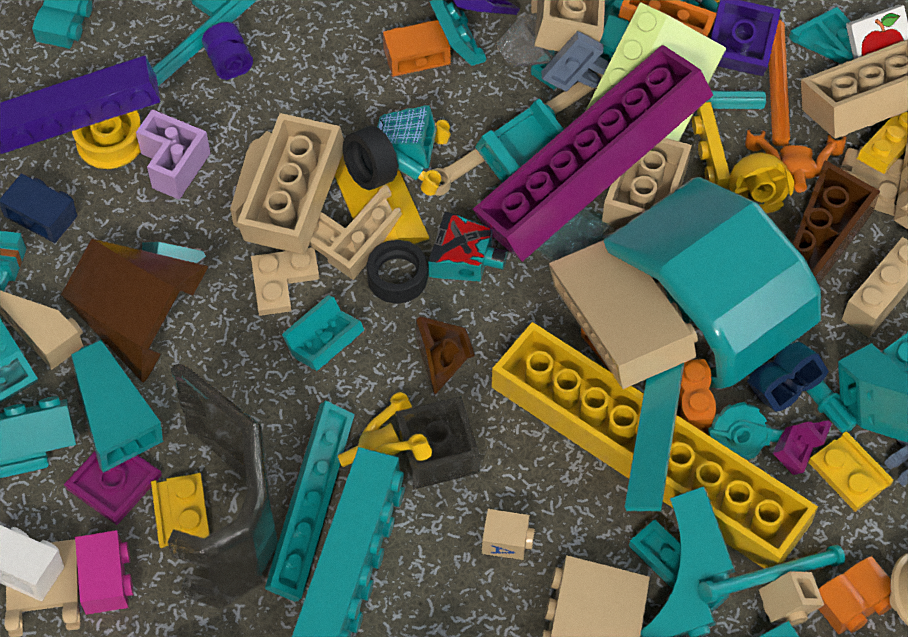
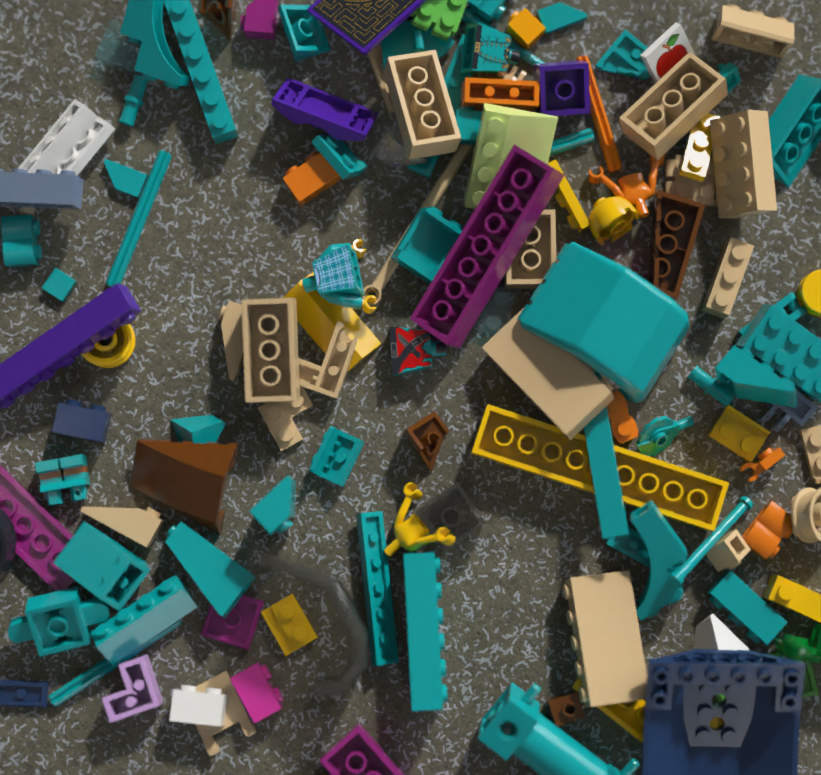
camera: 25 degrees left, 25 degrees up
(81, 66) = (59, 284): none -> teal tile
(175, 151) = (168, 337): lavender brick -> none
(226, 347) = (277, 507): none -> teal slope
(227, 50) = (163, 229): dark purple wheel -> none
(370, 157) = (320, 307): black tyre -> none
(397, 292) = (367, 365): black tyre -> none
(507, 534) = (521, 567): tan brick -> none
(573, 62) = (447, 160): sand blue hinge -> none
(784, 379) = (679, 380): dark blue brick -> none
(798, 442) = (697, 425): magenta slope -> none
(877, 510) = (767, 458): none -> orange plate

